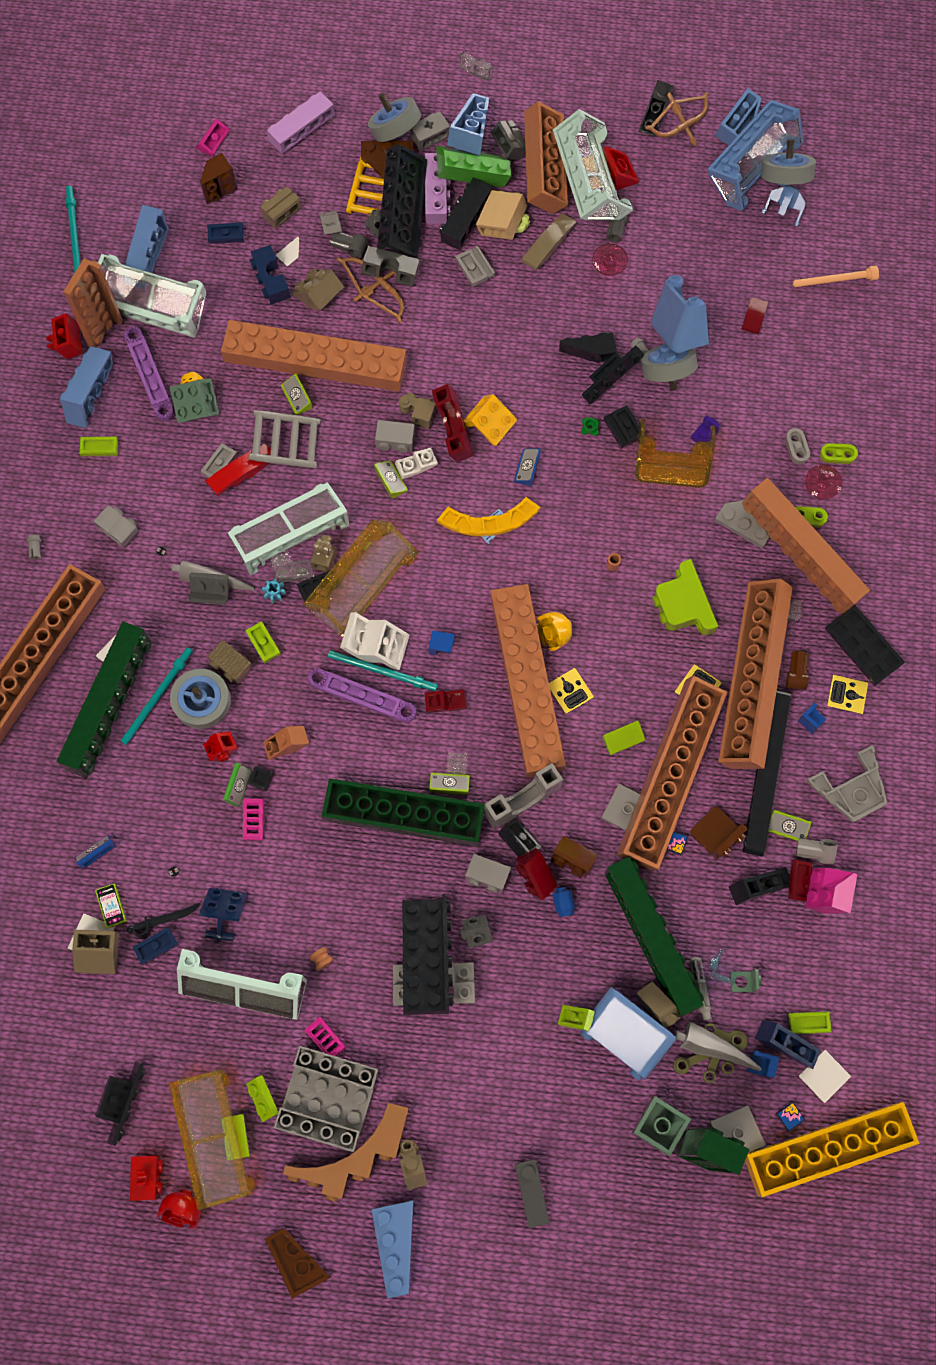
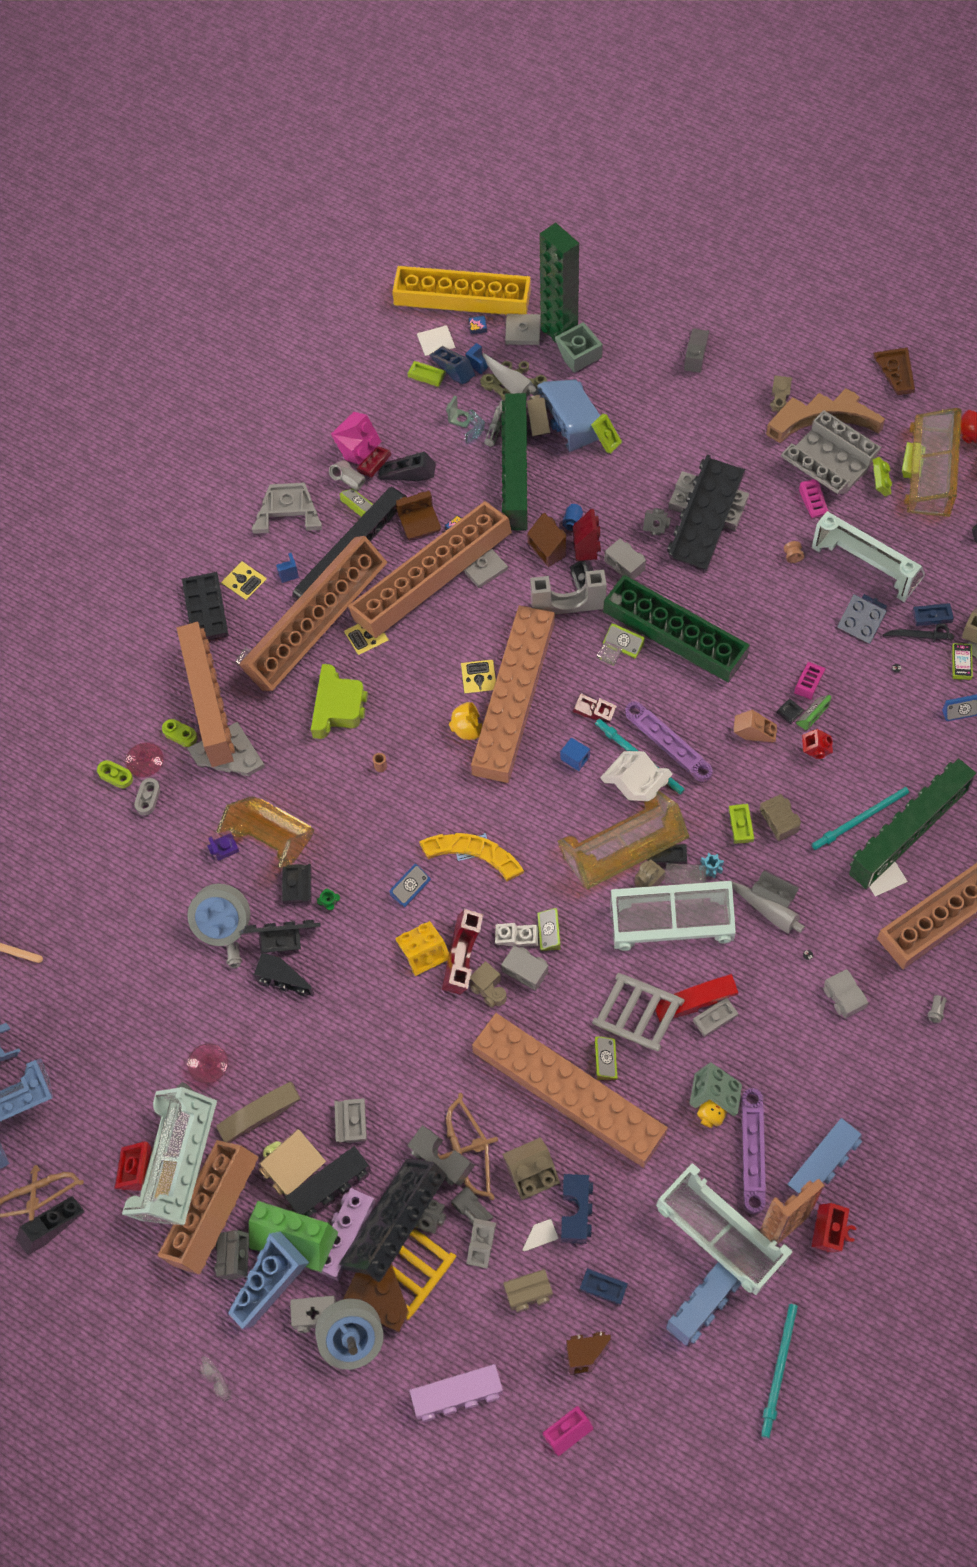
camera: 150 degrees left, 10 degrees down
(98, 446) = (835, 1092): lime tile -> none
(200, 698) = (820, 792): wheel -> none
(394, 1240) = (813, 356): medium blue wedge -> none
(623, 738) = (454, 619): lime slope -> none
(680, 321) = (192, 945): medium blue windscreen -> none
(754, 315) = (103, 938): dark red slope -> none
(797, 675) = (277, 605): reddish brown piece -> none

